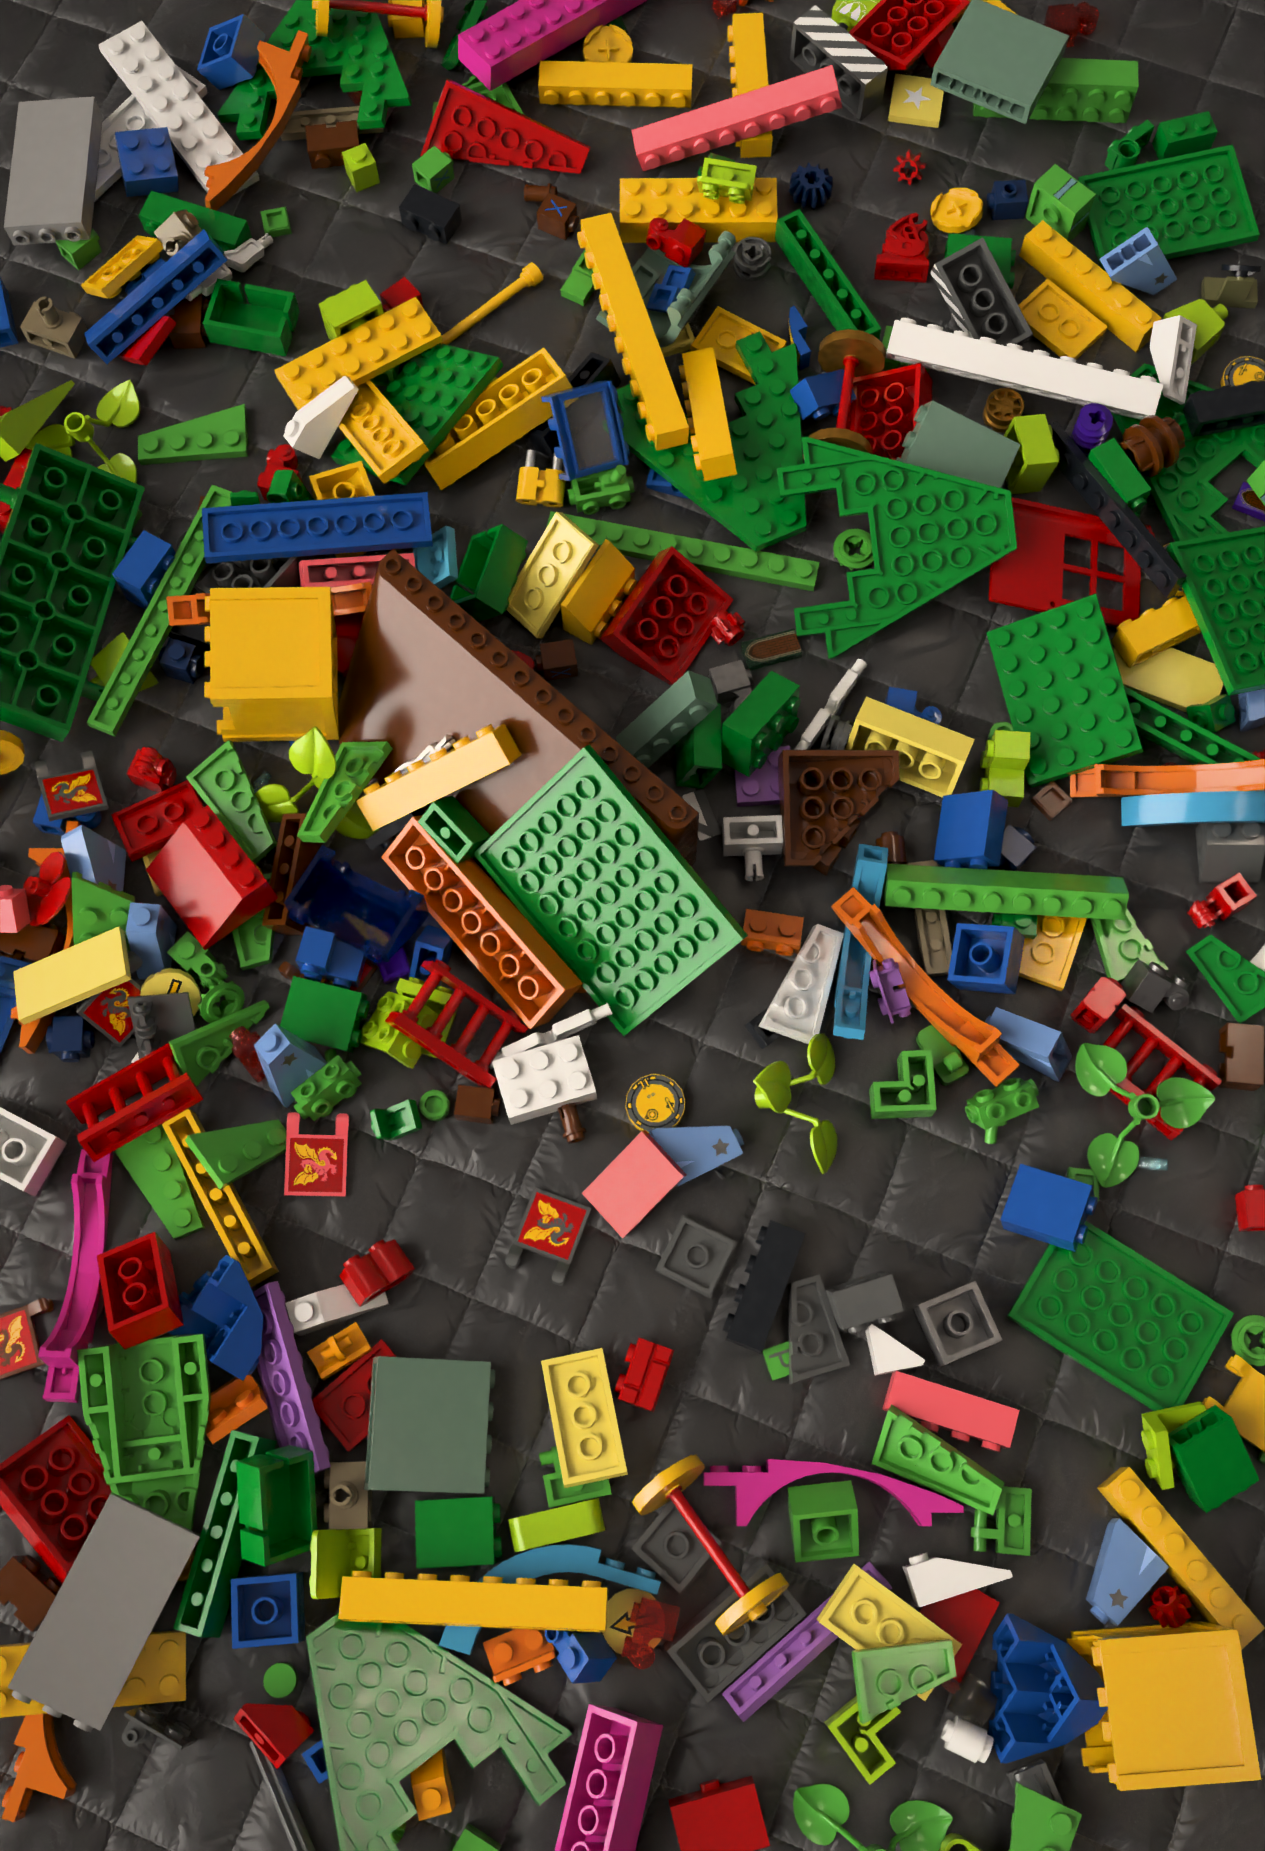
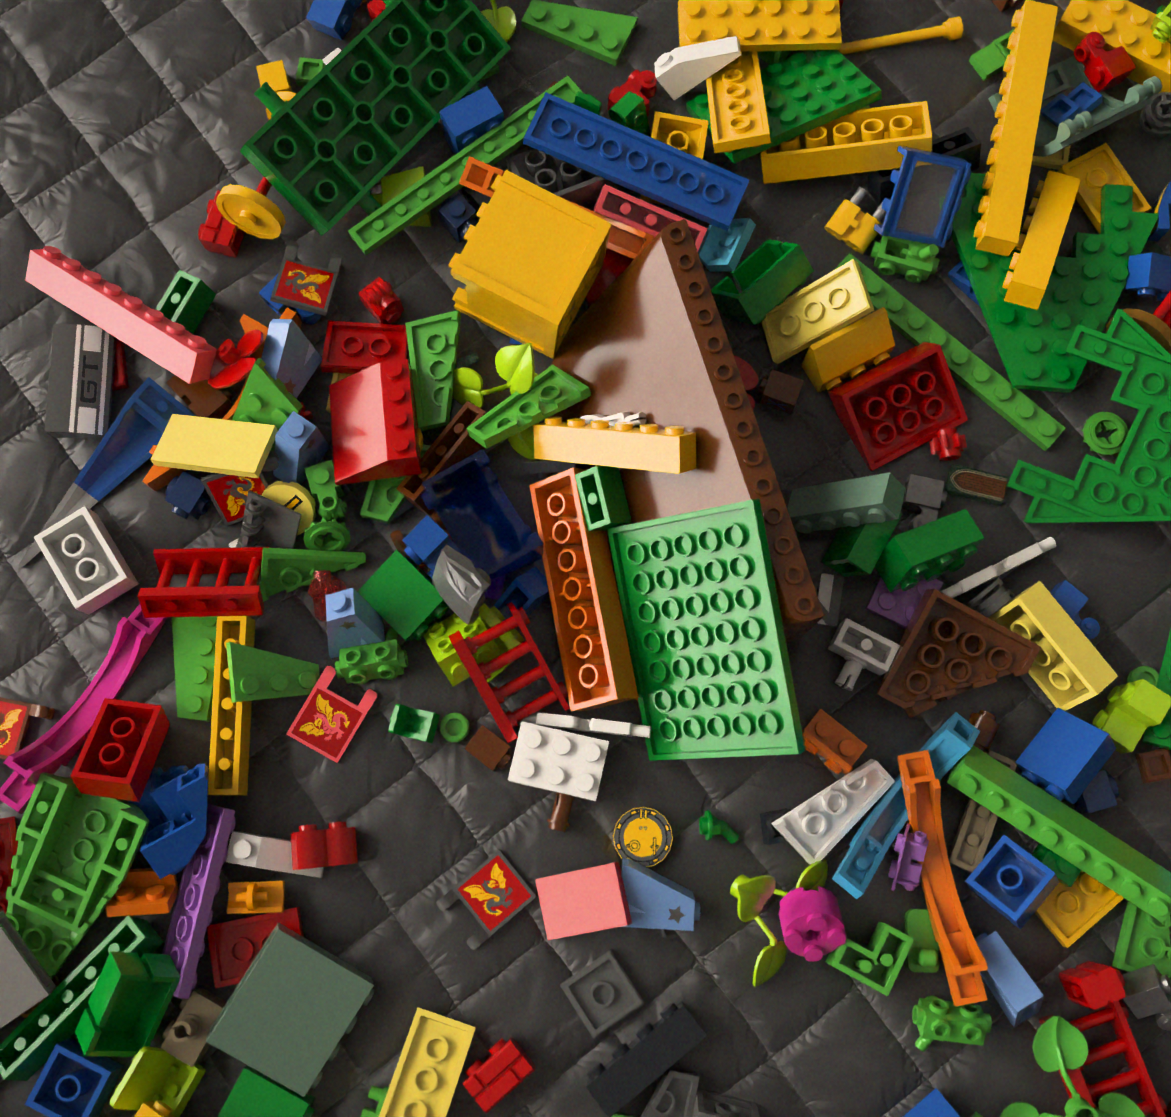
camera: 30 degrees right, 5 degrees up
(369, 969) = (460, 584): none -> dark grey slope
(708, 1059) = (710, 826): none -> green plate
(839, 1087) = (811, 922): none -> dark pink brick

